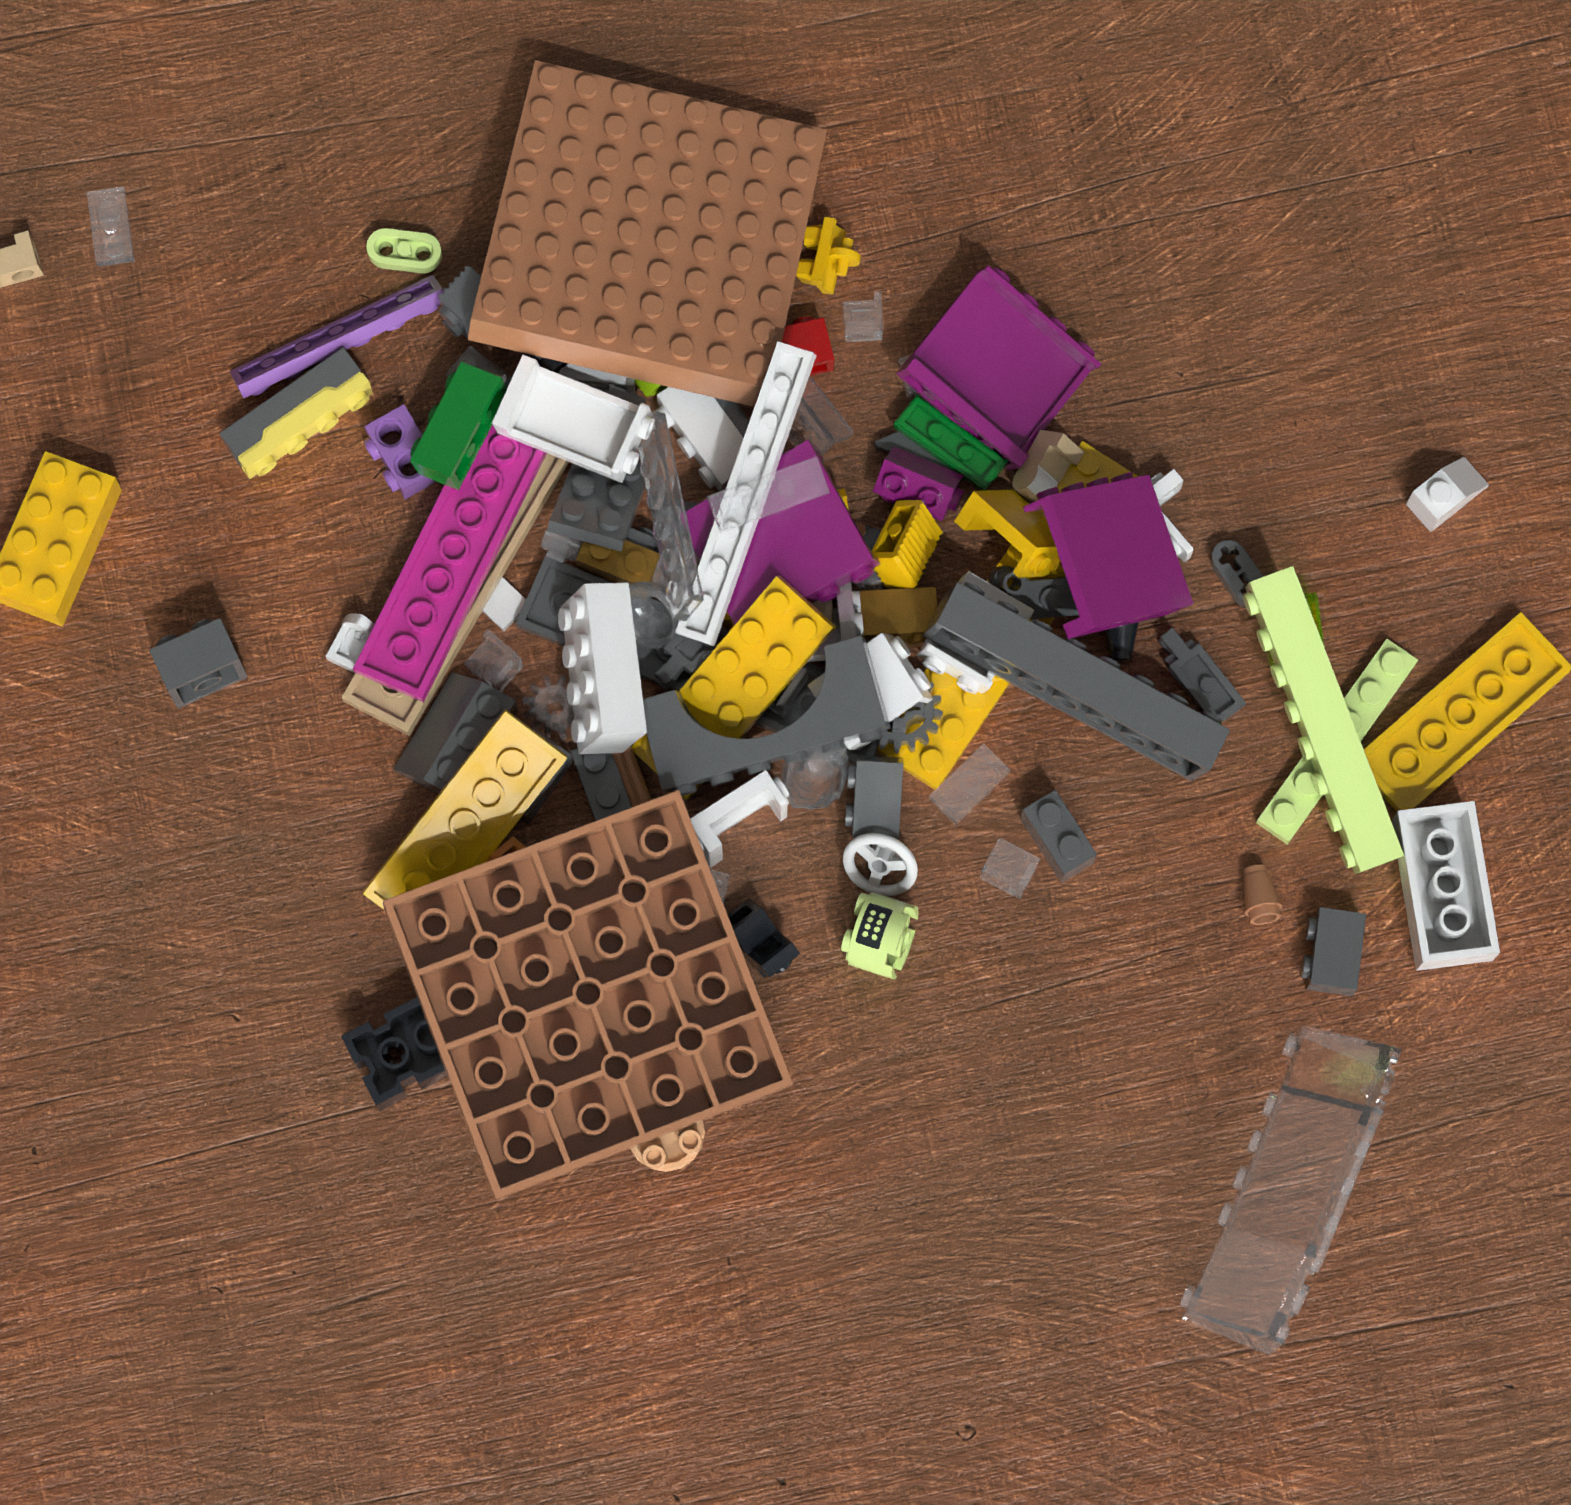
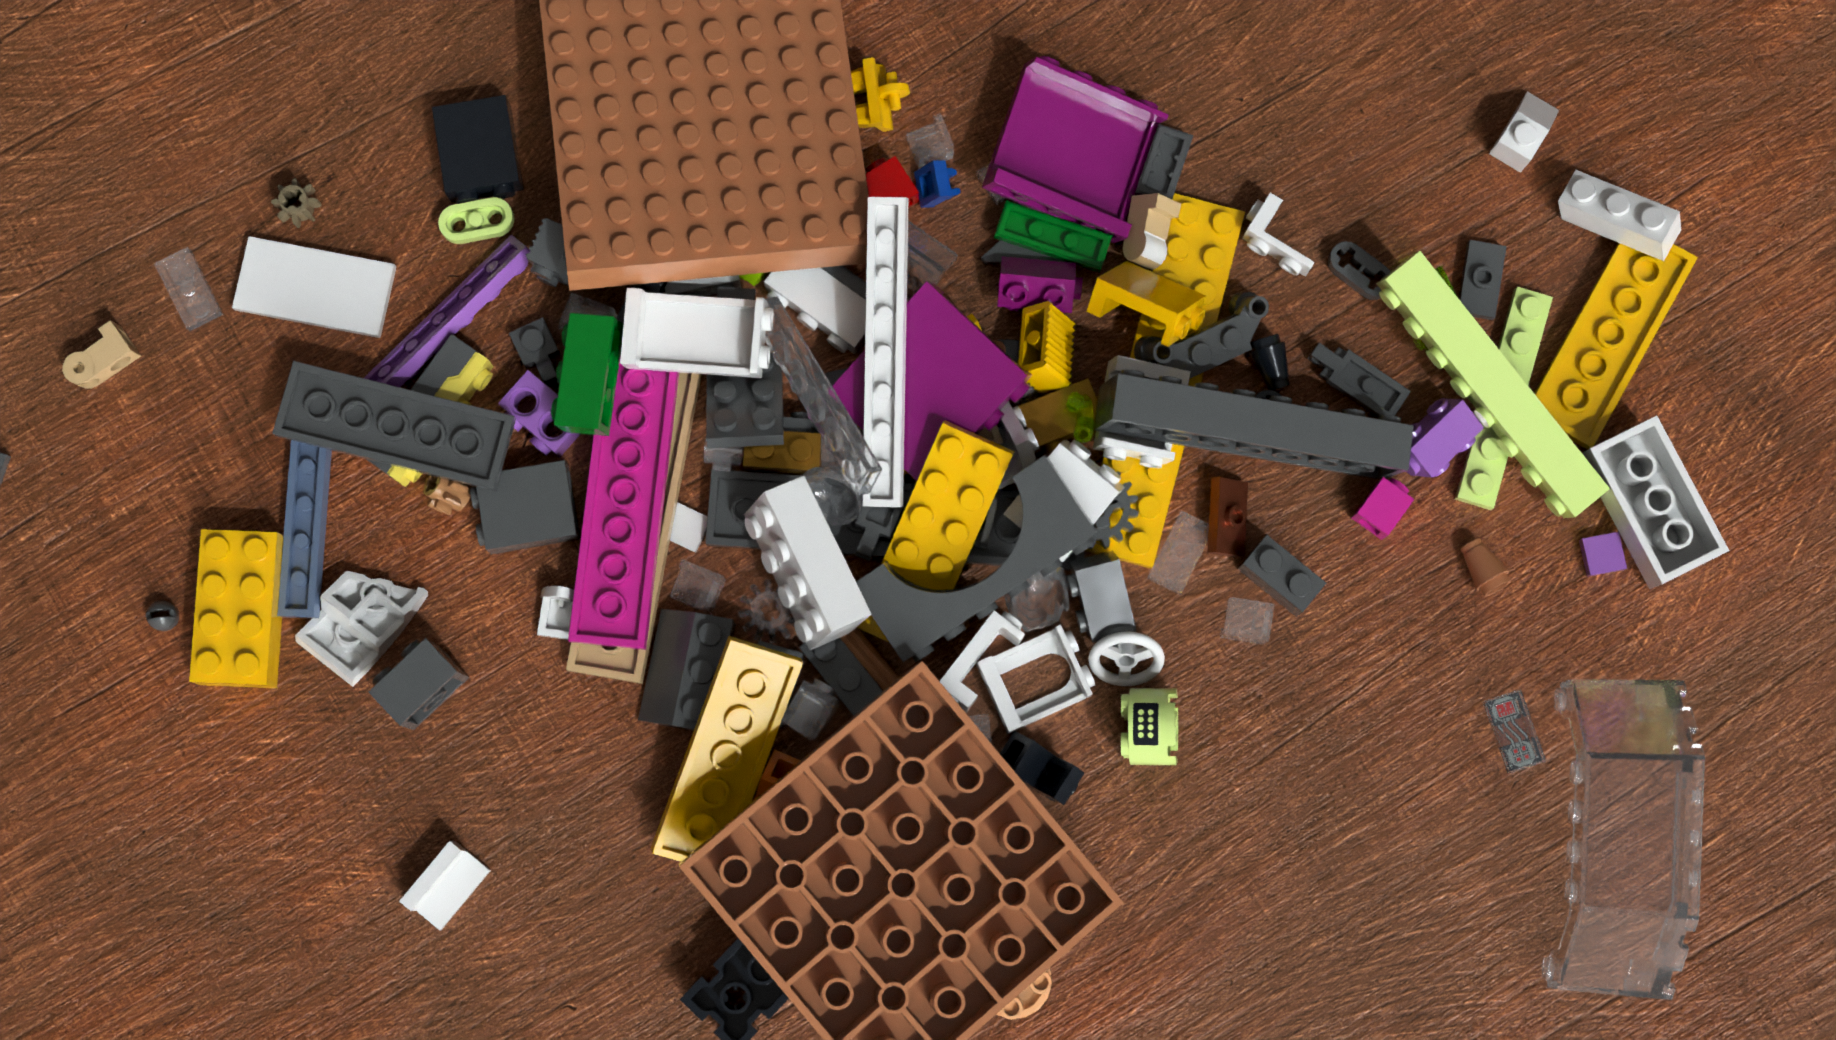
camera: 20 degrees left, 5 degrees up
(151, 463) = (304, 531): none -> sand blue plate
(156, 861) = (445, 884): none -> white panel
(161, 590) = (358, 623): none -> white slope
(229, 263) = (314, 287): none -> white tile
(249, 174) = (290, 193): none -> dark tan gear
(260, 414) = (394, 426): none -> dark grey plate
(288, 493) = (446, 494): none -> medium nougat gear
(356, 534) = (527, 509): none -> dark grey brick
(419, 388) = (536, 348): none -> dark grey plate
(429, 184) = (478, 149): none -> black brick
(560, 808) = (811, 710): none -> clear brick
(768, 494) = (908, 347): clear tile -> none
(812, 827) = (1052, 642): none -> white panel
(853, 357) = (934, 183): none -> blue tile
(917, 623) = (1084, 419): none -> clear neon green arm
(1026, 764) = (1227, 517): none -> copper plate
(1084, 408) = (1164, 162): none -> dark grey plate
(1114, 552) = (1248, 292): magenta panel -> none
(1180, 804) = (1383, 507): none -> dark pink brick
(1235, 1062) = (1514, 731): none -> clear tile
(1264, 752) = (1440, 435): none -> medium lavender brick
(1335, 951) = (1572, 597): dark grey brick -> none
(1354, 621) = (1482, 278): none -> dark grey plate
(1383, 921) = (1602, 554): none -> medium lavender tile
(1507, 600) = (1620, 215): none -> white brick

